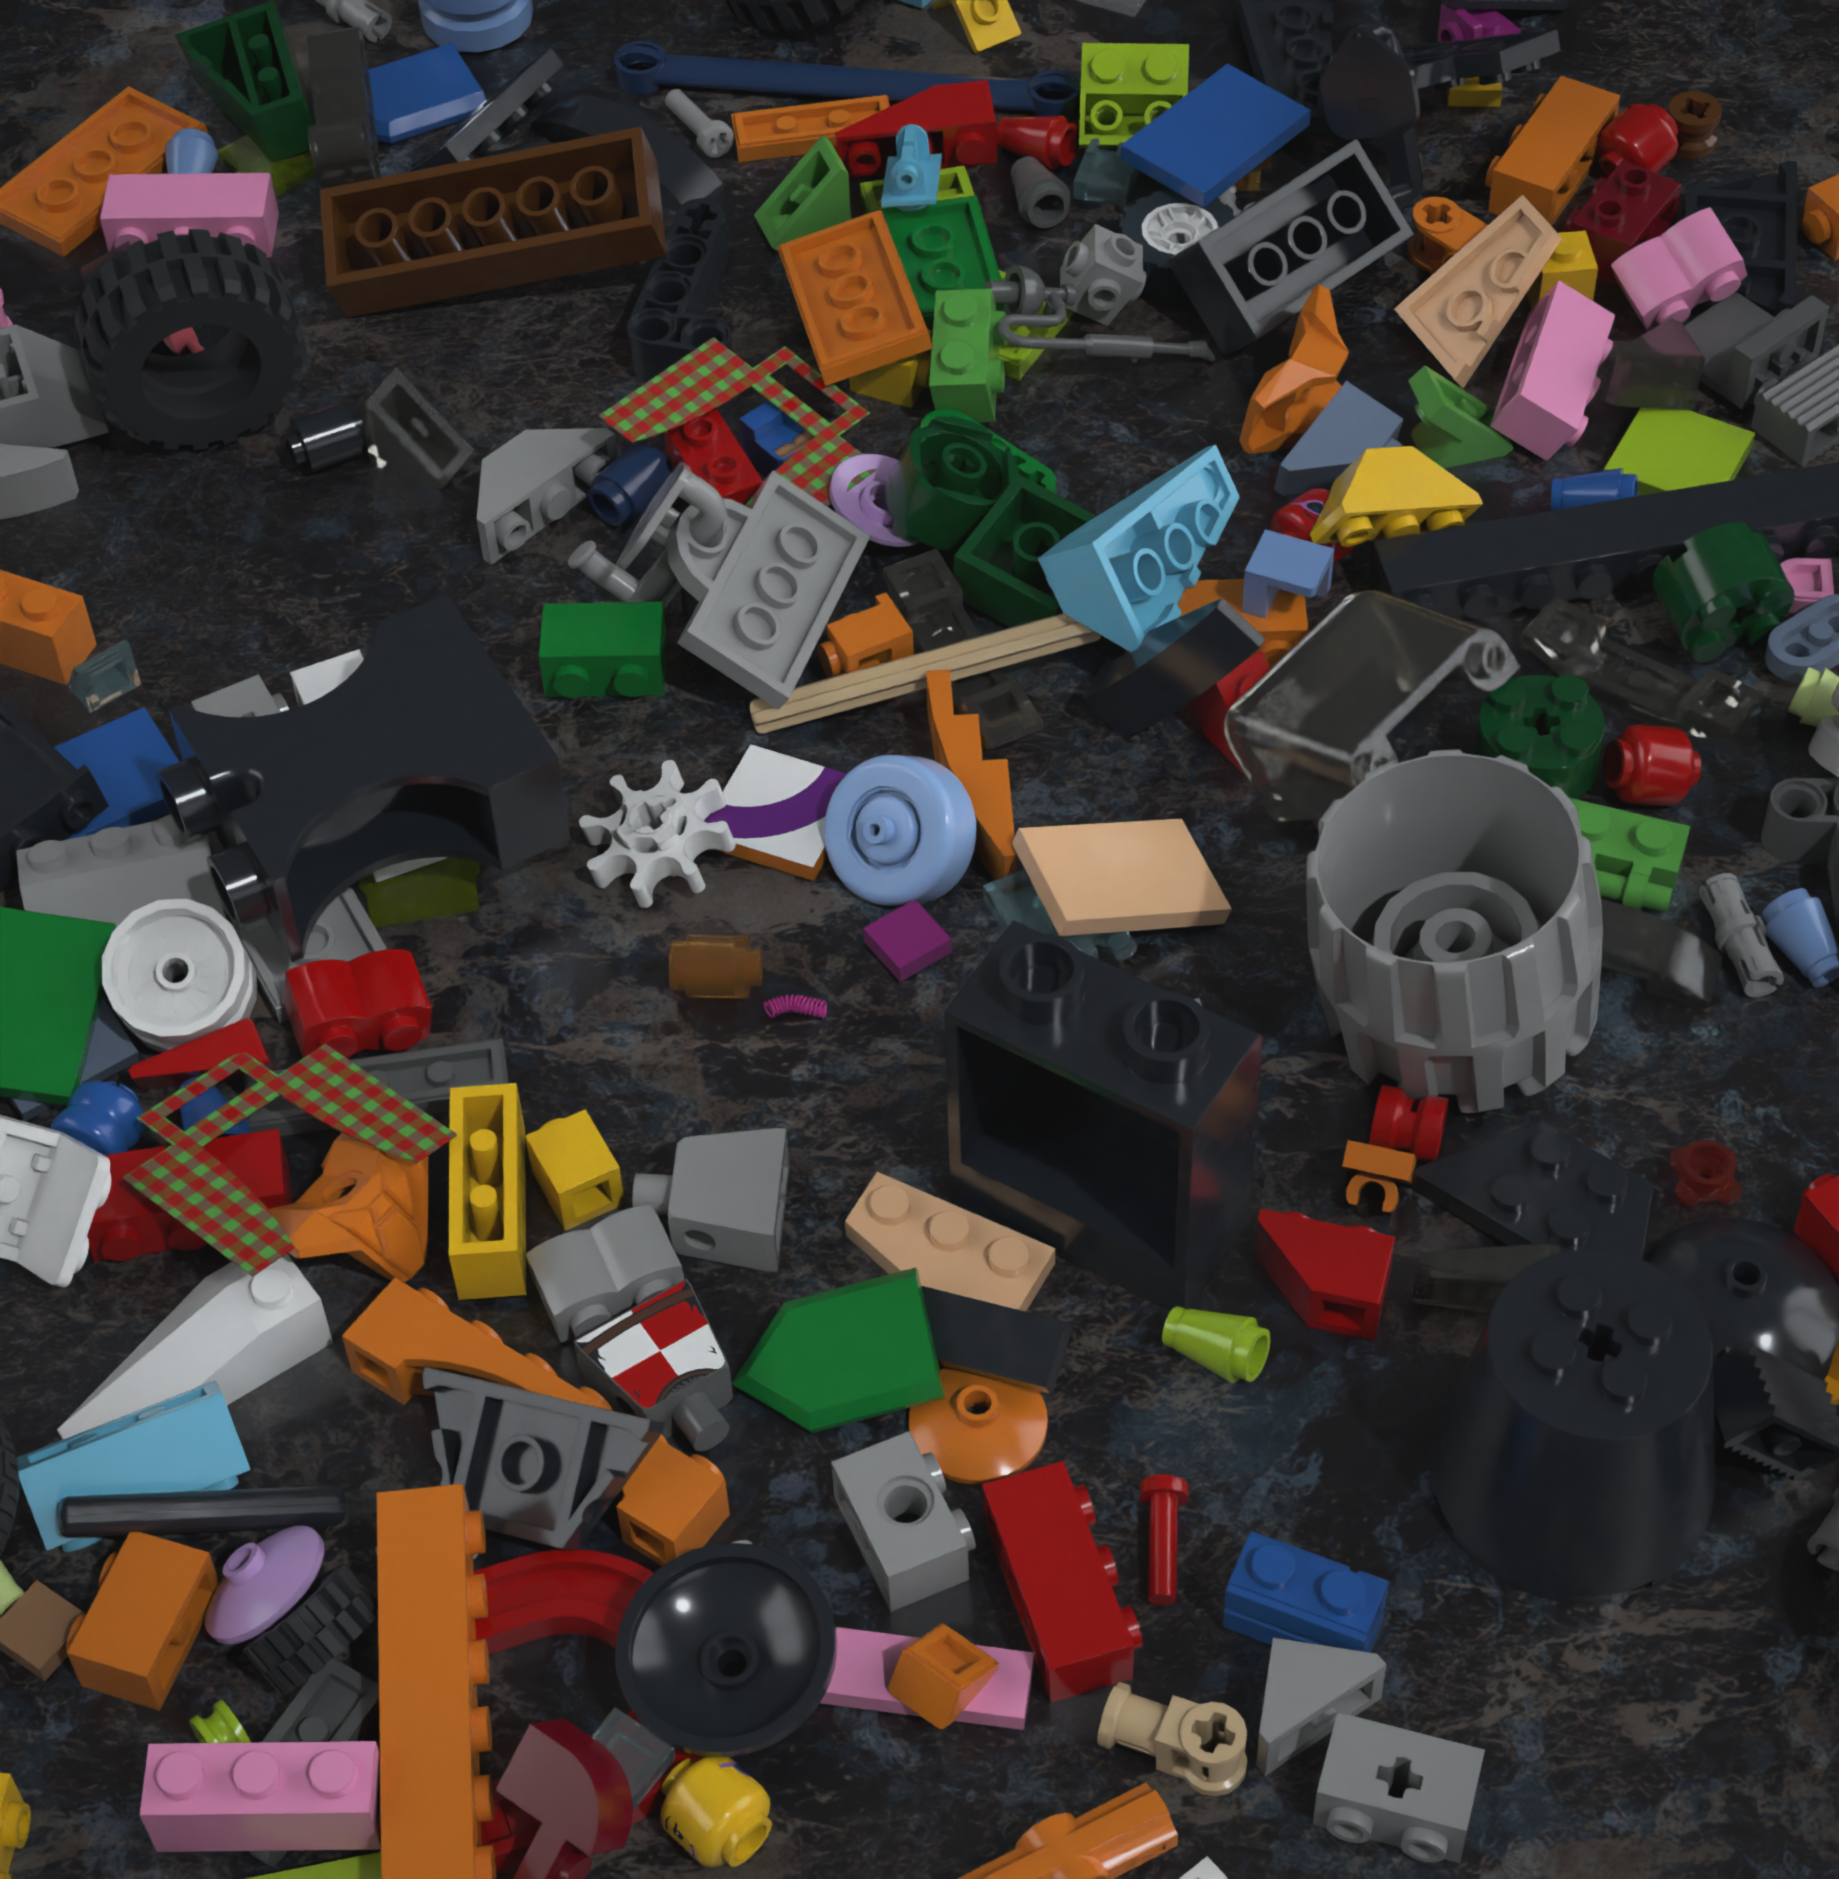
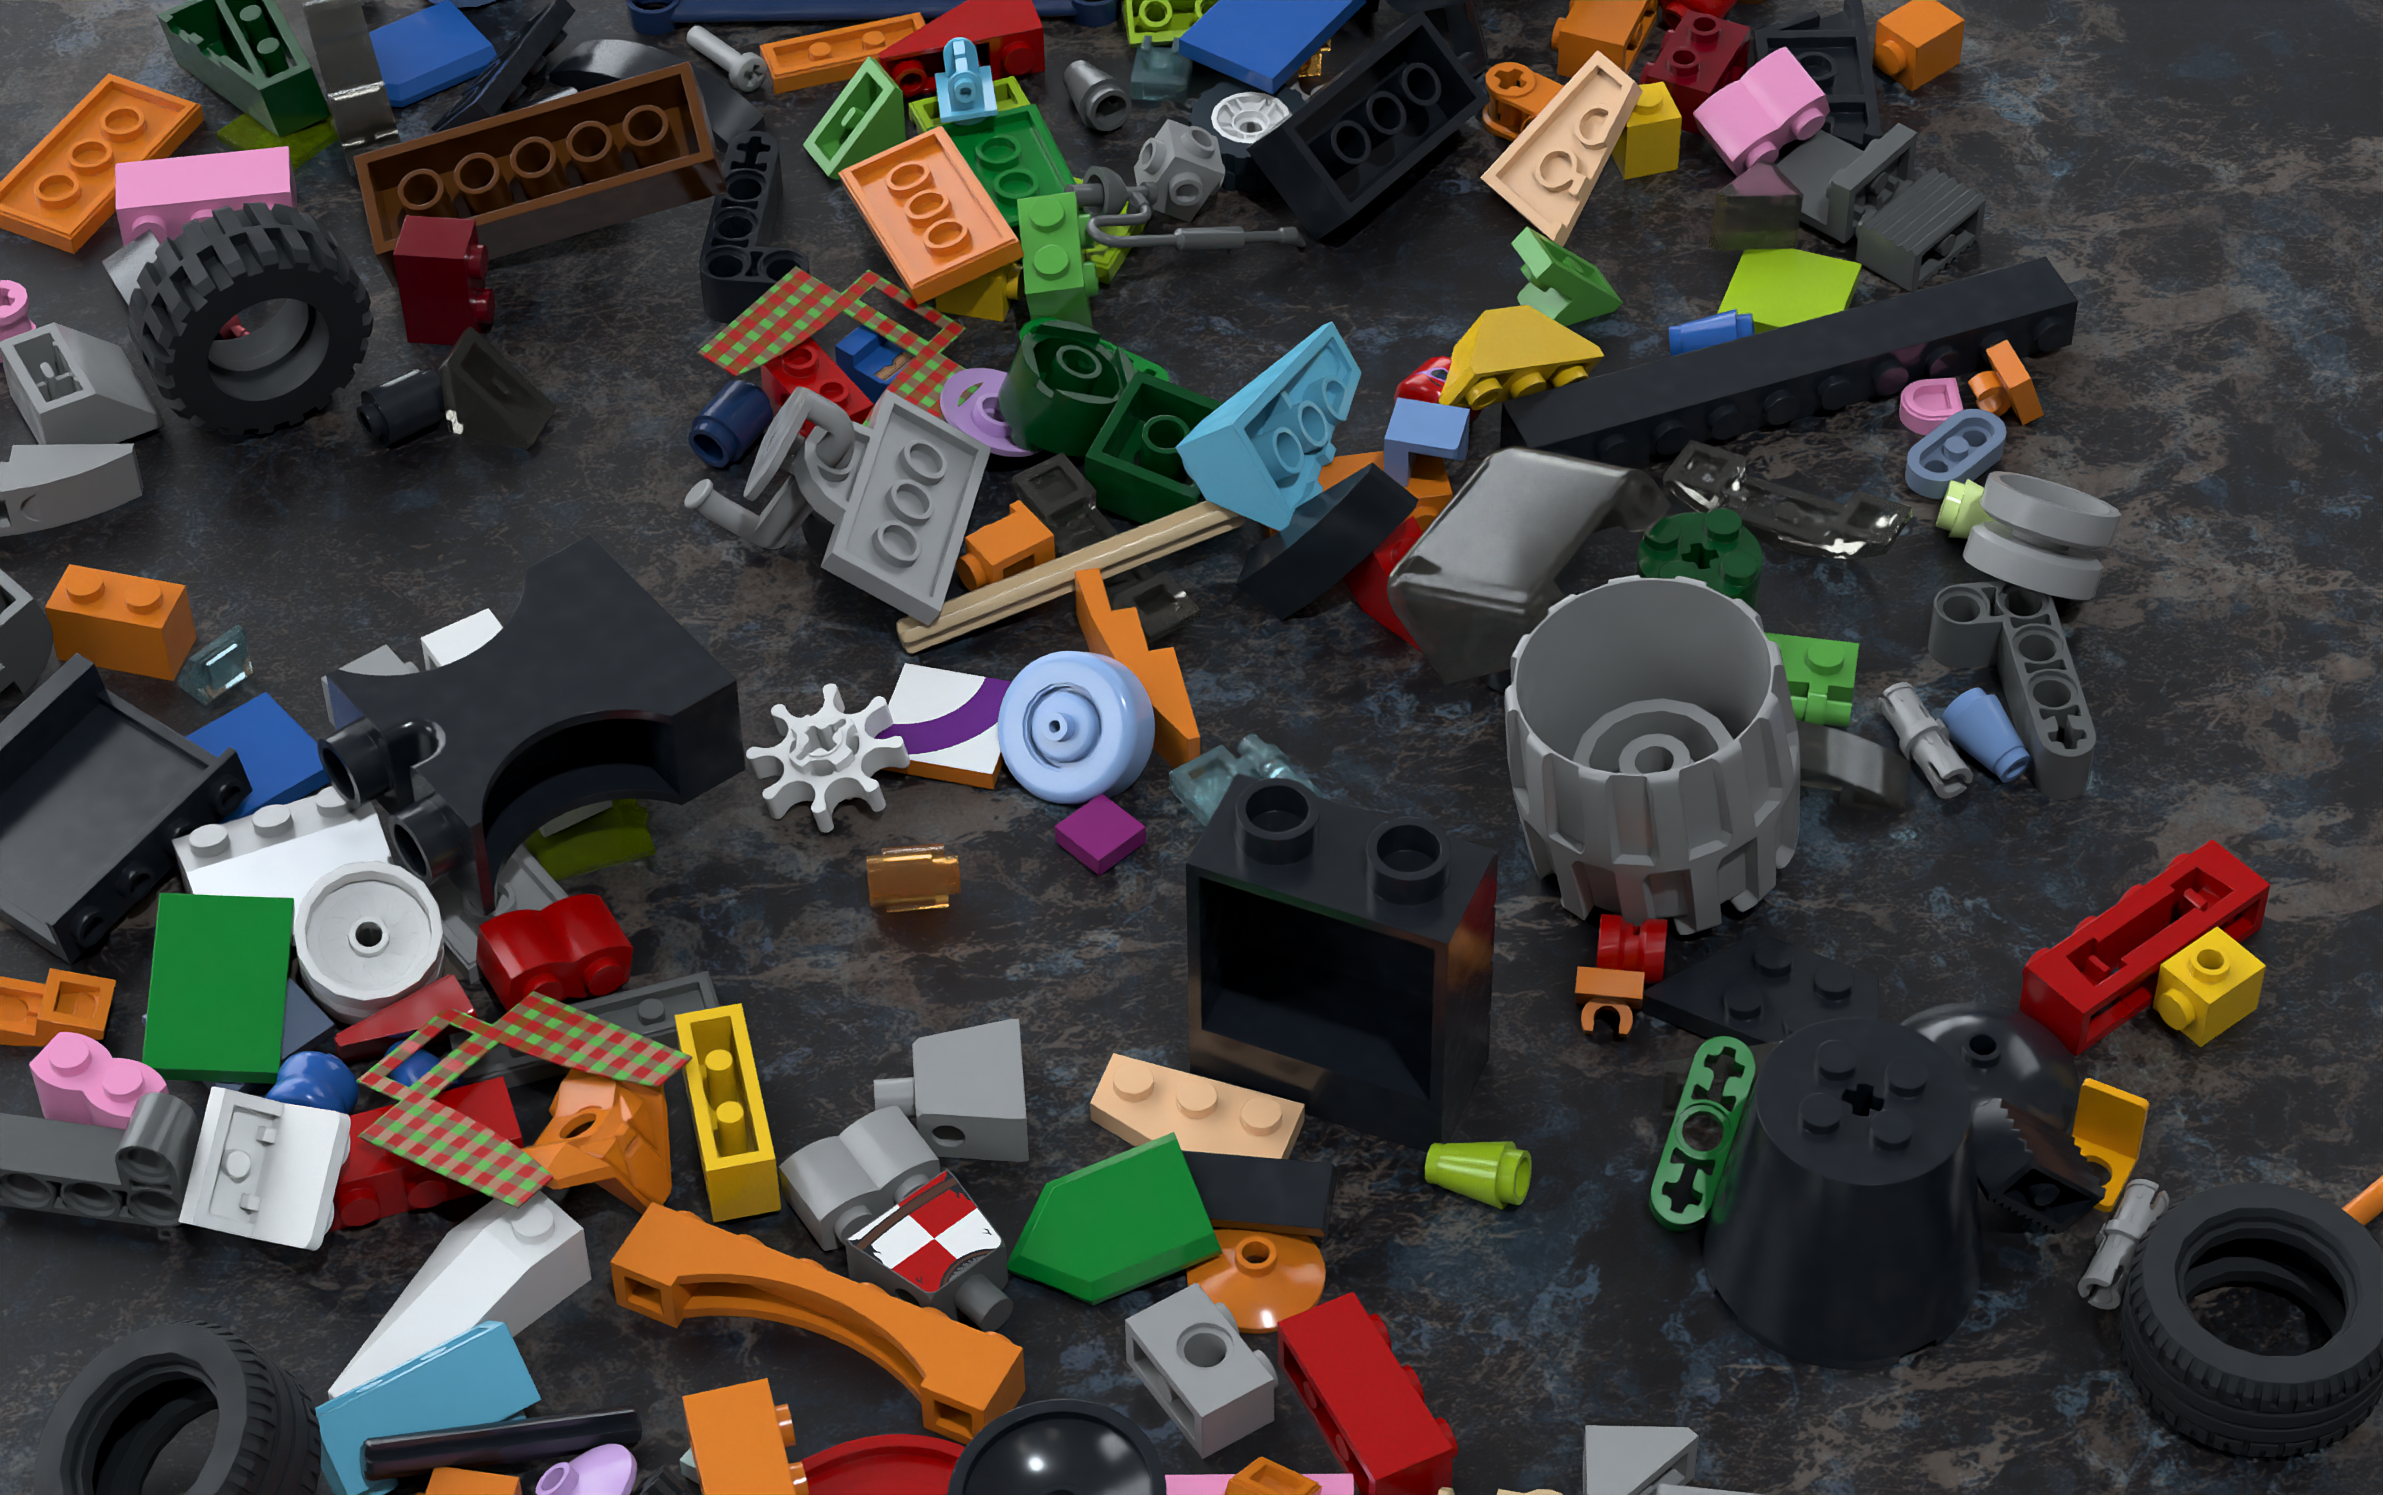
camera: 10 degrees left, 5 degrees down
(191, 152) = (193, 134): medium blue cone -> none
(384, 316) = (442, 279): none -> dark red brick
(534, 1459) = (830, 1350): black wing -> none
(537, 482) = (634, 428): light grey slope -> none
(575, 1169) = (809, 1084): yellow brick -> none
(603, 649) = (736, 585): green brick -> none
(790, 1005) = (994, 909): dark pink leg -> none
(1046, 138) = (1093, 40): red cone -> none
(1120, 876) = (1316, 739): light nougat tile -> none
(1164, 1496) = (1453, 1318): red piece -> none
(1300, 387) = (1400, 272): orange piece -> none
(1302, 1597) = (1604, 1386): blue brick -> none
(1327, 1270) = (1574, 1093): red slope -> none
(1336, 440) = (1448, 310): sand blue slope -> none
(1452, 1279) = (1734, 1093): none -> green beam
(1554, 372) = (1653, 223): bright pink brick -> none
(1651, 765) = (1811, 590): red head -> none
(1710, 1159) = (1926, 963): clear red plate -> none
(1723, 590) = (1856, 415): dark green brick -> none

